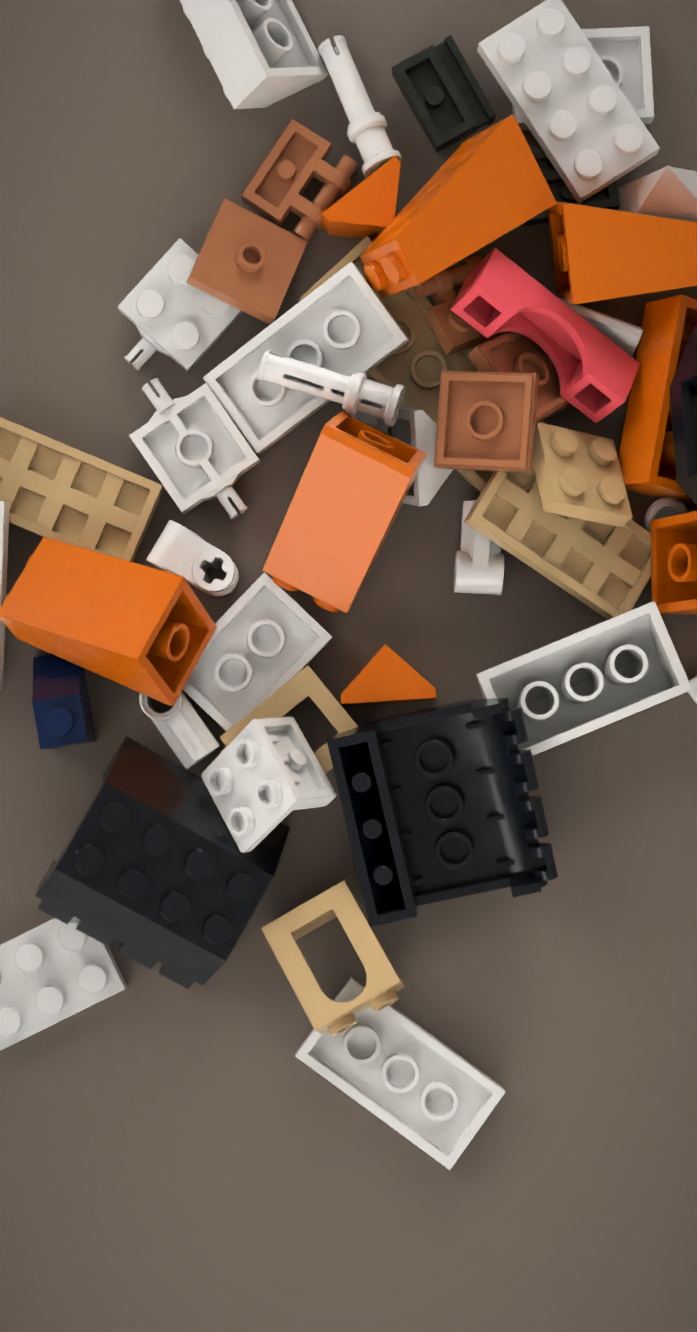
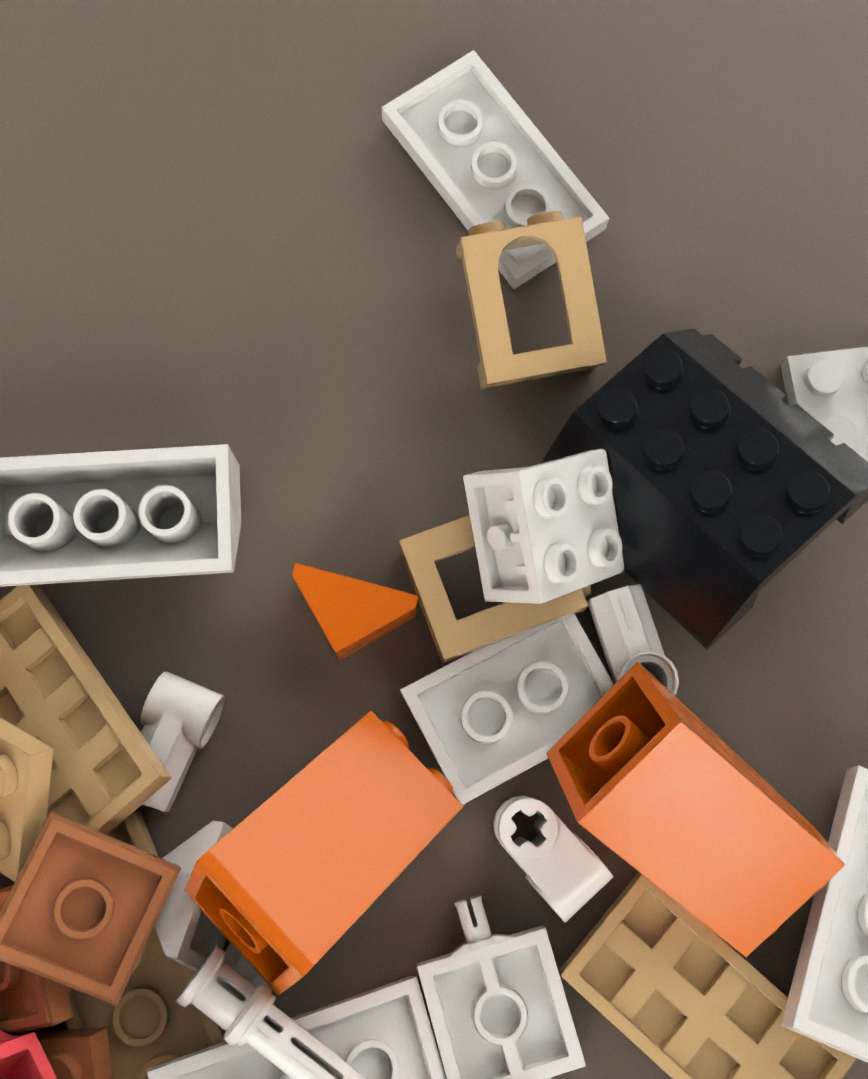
camera: 165 degrees left, 10 degrees down
(61, 703) = (779, 718): dark blue slope -> none
(441, 806) = (333, 431): black slope -> none

